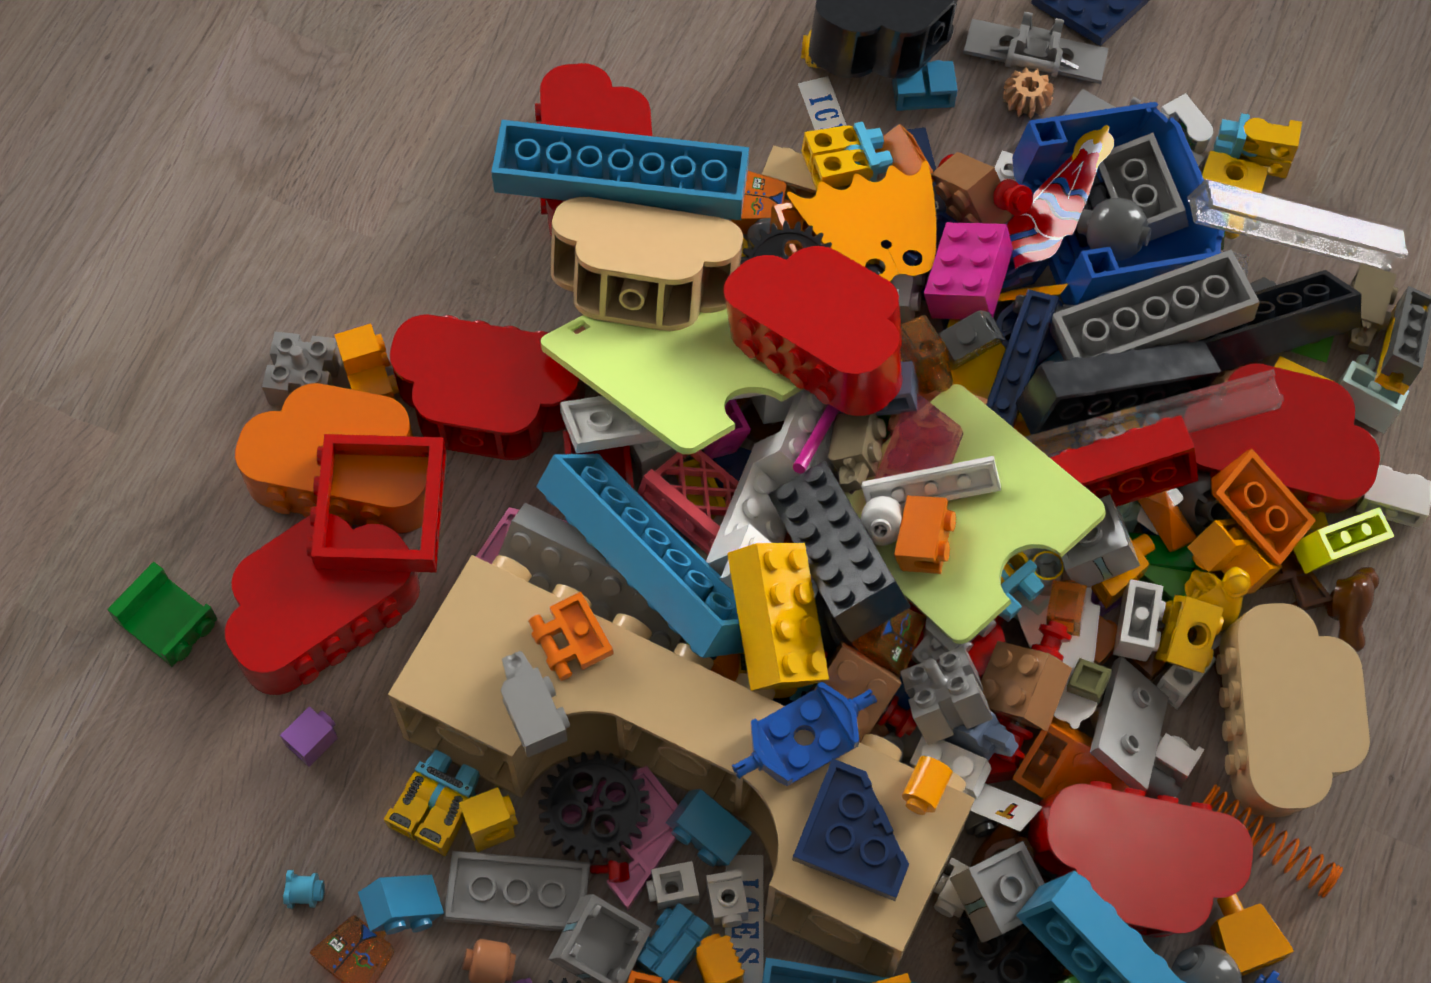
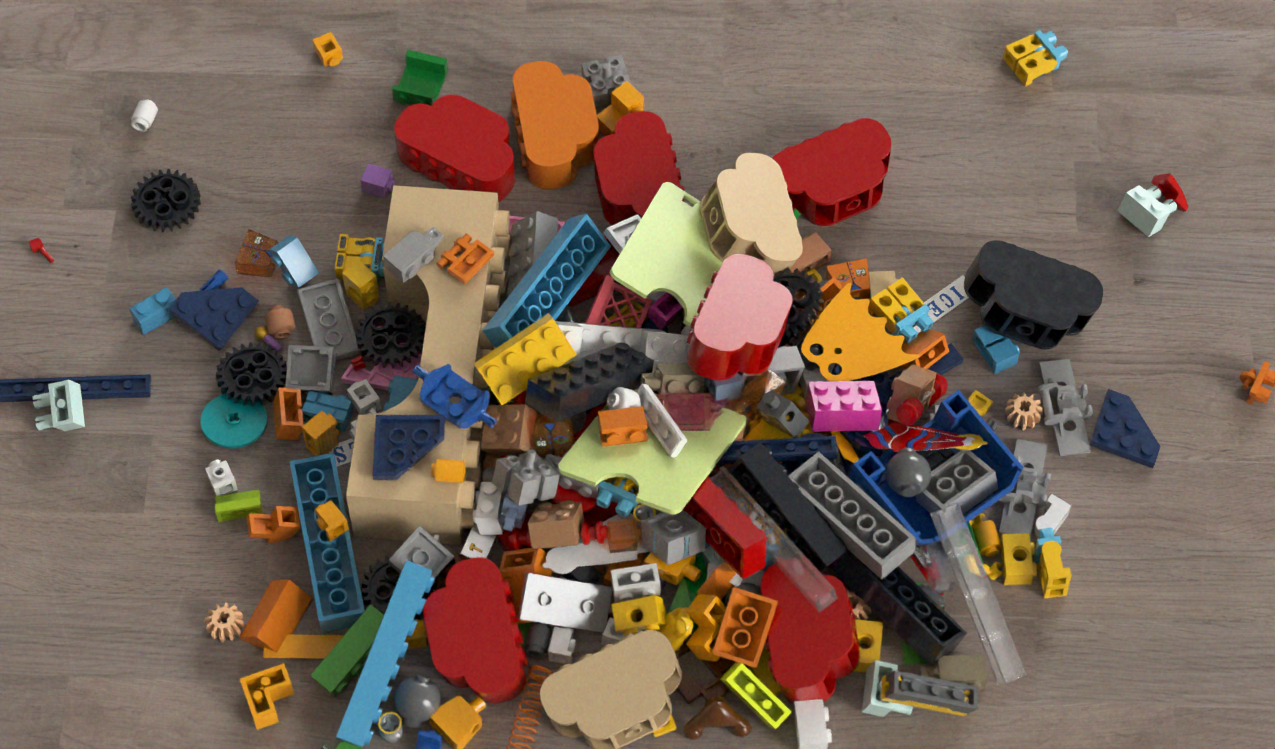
camera: 70 degrees right, 5 degrees down
(31, 718) = (329, 53): none -> light orange brick
(303, 889) = (285, 214): medium azure brick -> none
(379, 559) = (528, 172): red window -> none
(620, 168) = (811, 181): dark azure brick -> none
(815, 439) = (663, 351): dark pink bar -> none
(992, 138) = (980, 402): none -> yellow tile
(1089, 680) = (578, 563): olive tile -> none

